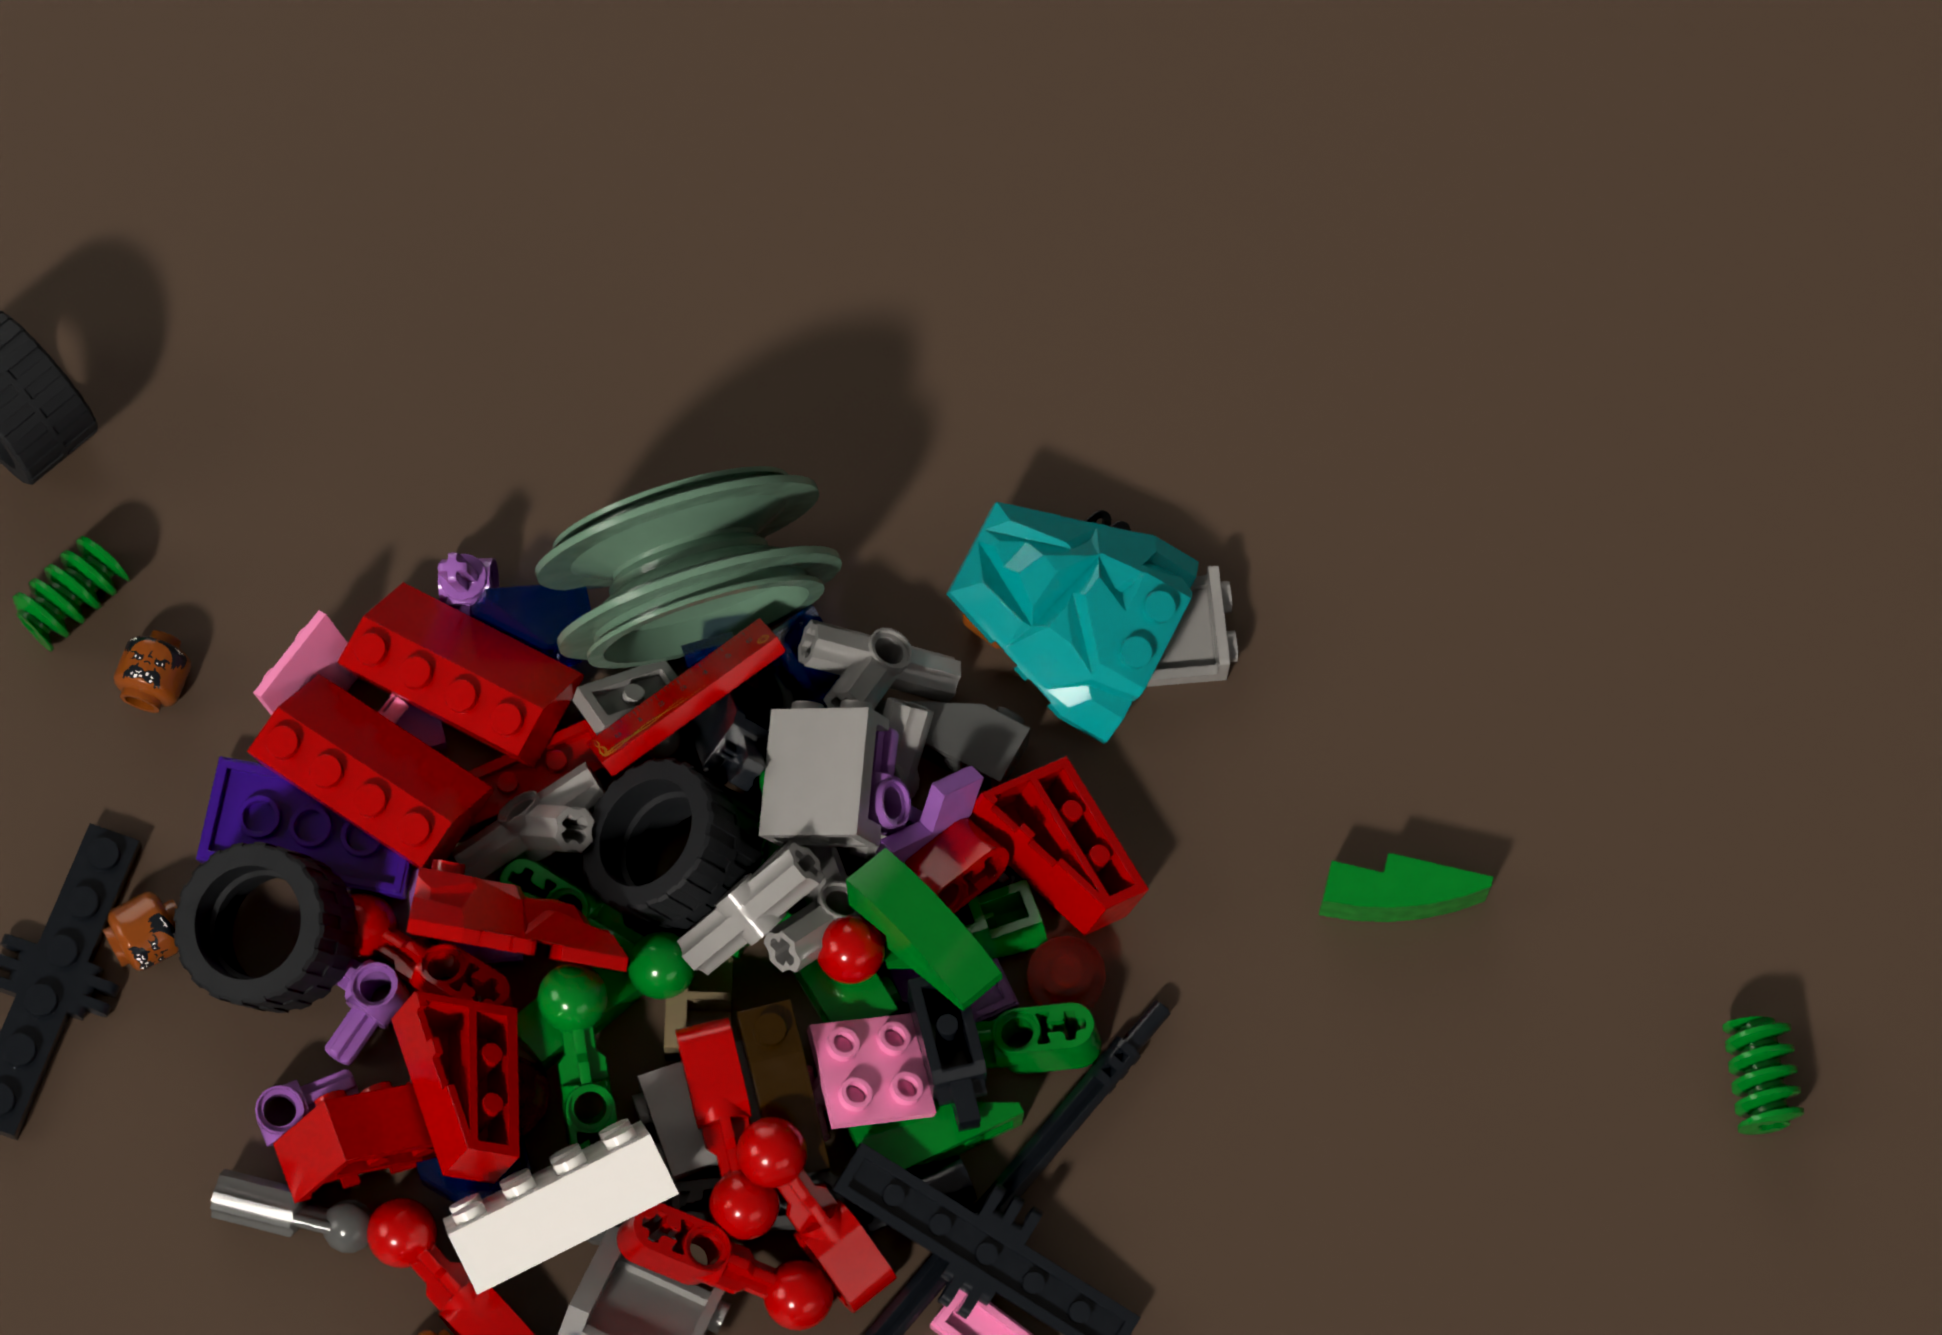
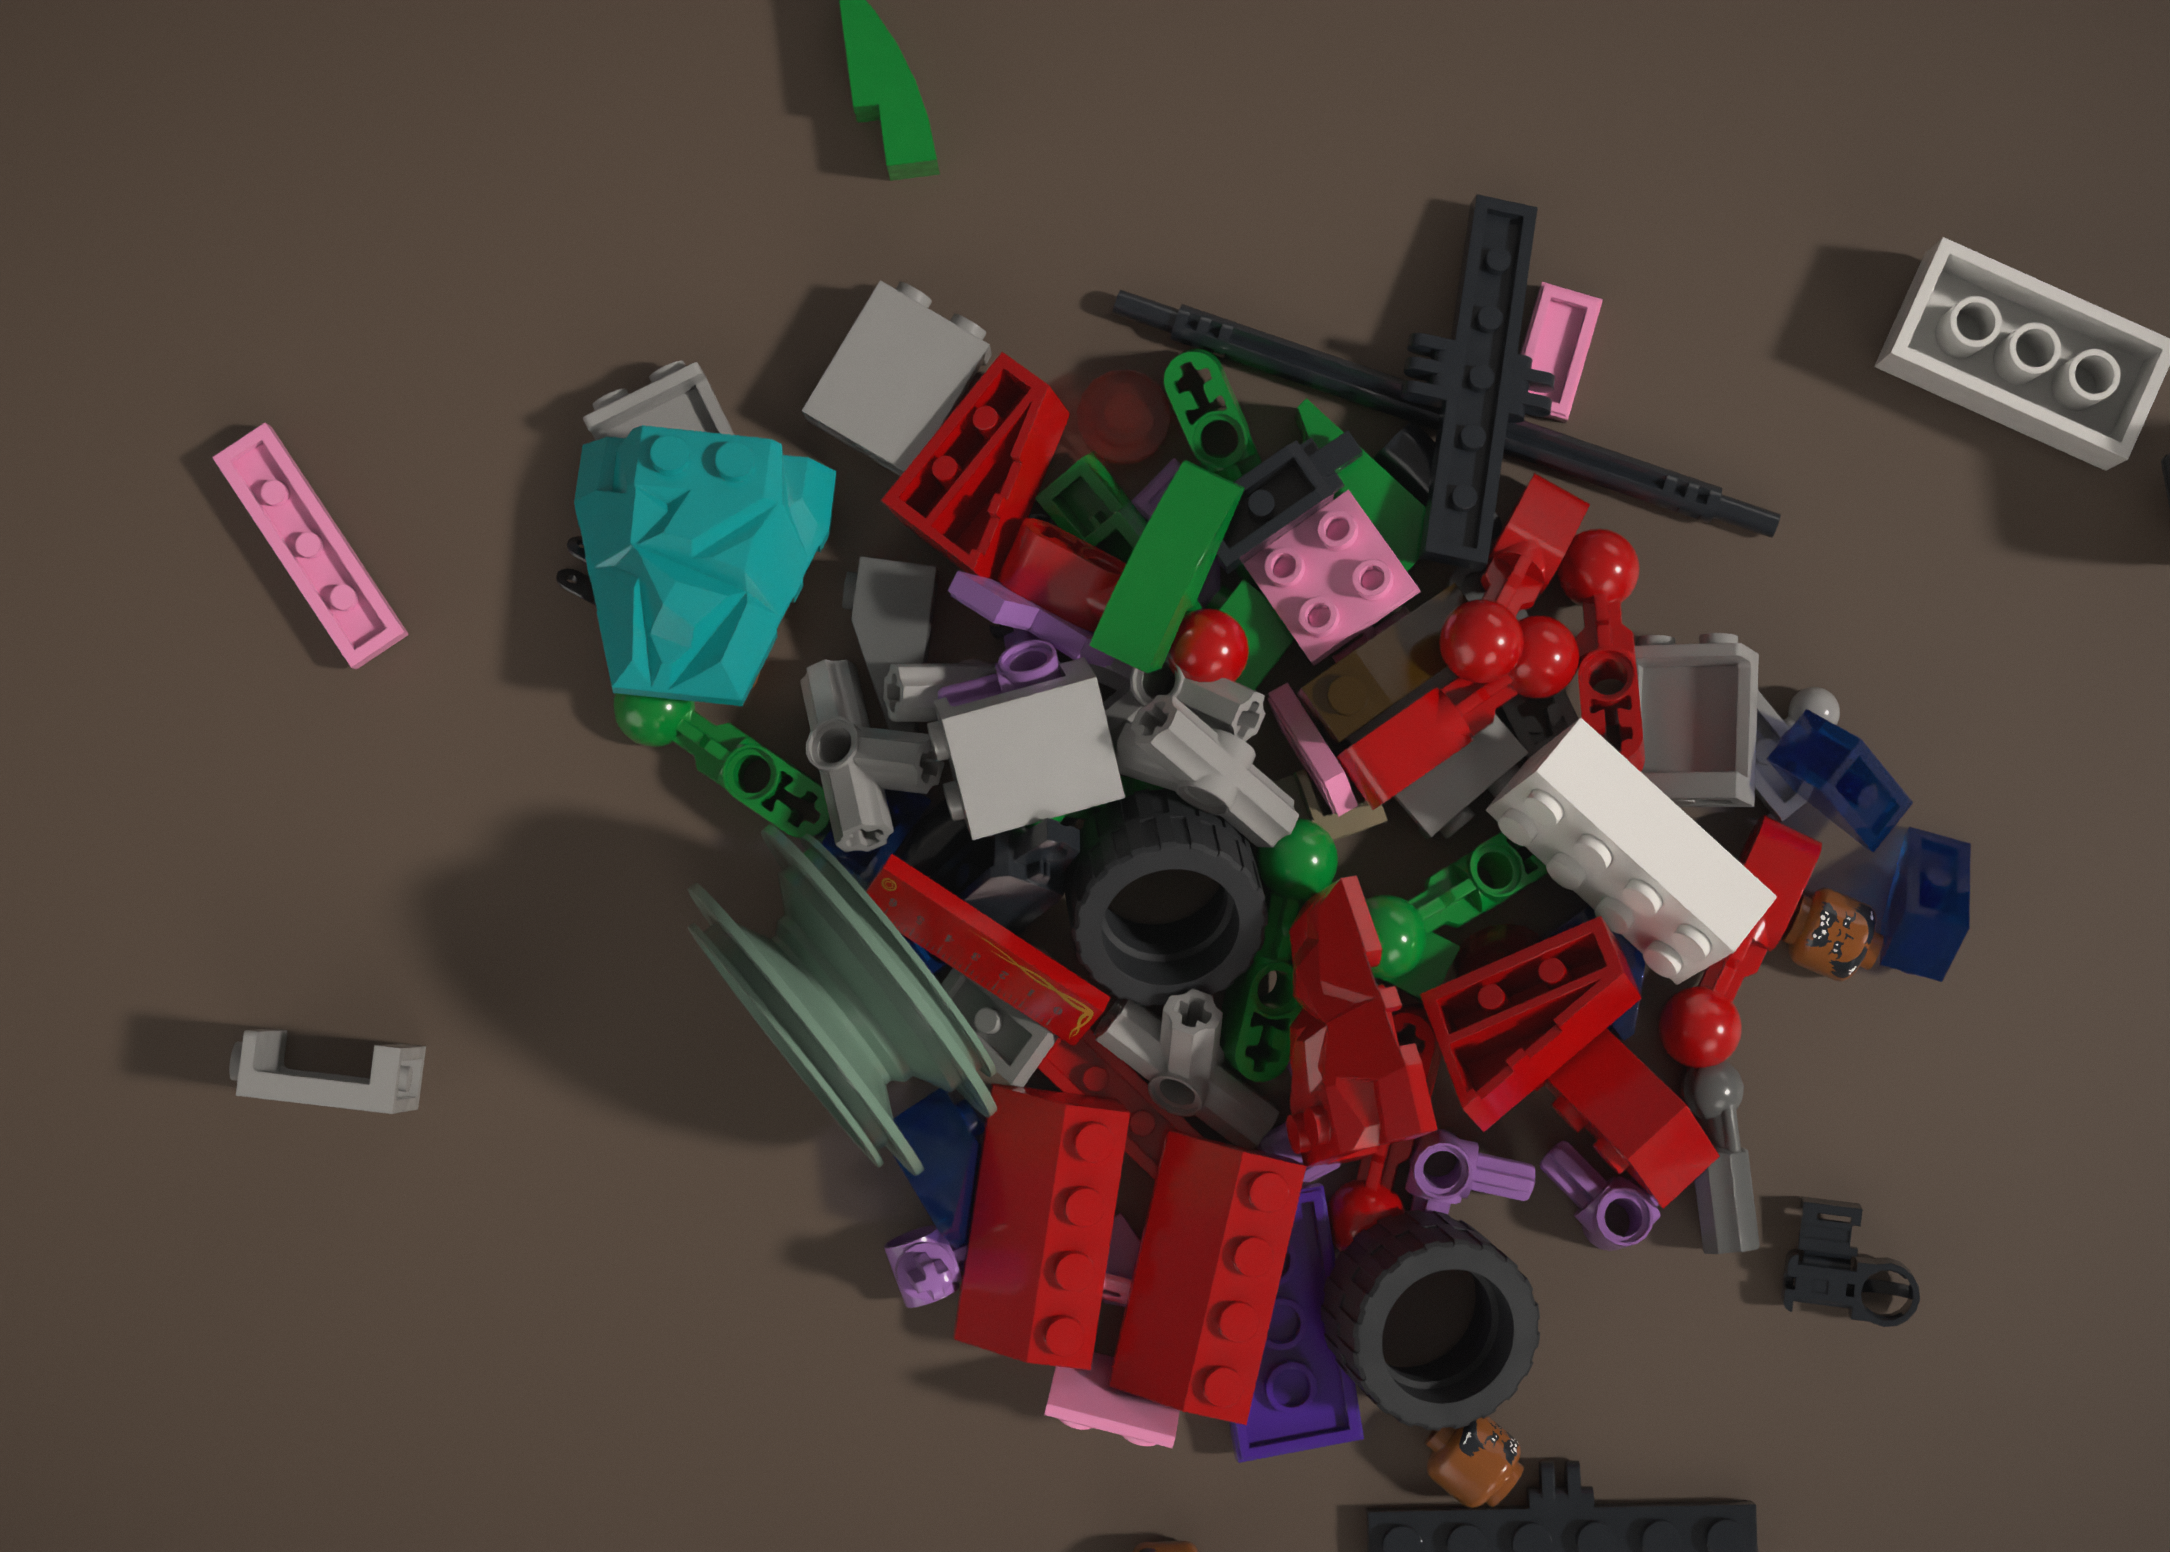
camera: 100 degrees left, 15 degrees up
(170, 1264) = (1826, 1272): none -> black piece
(727, 1004) = (1312, 750): none -> bright pink tile
(805, 169) = (391, 1089): none -> light grey panel
(915, 581) = (723, 756): none -> green beam
(1165, 813) = (896, 376): none -> light grey panel
(1198, 343) = (310, 546): none -> bright pink plate

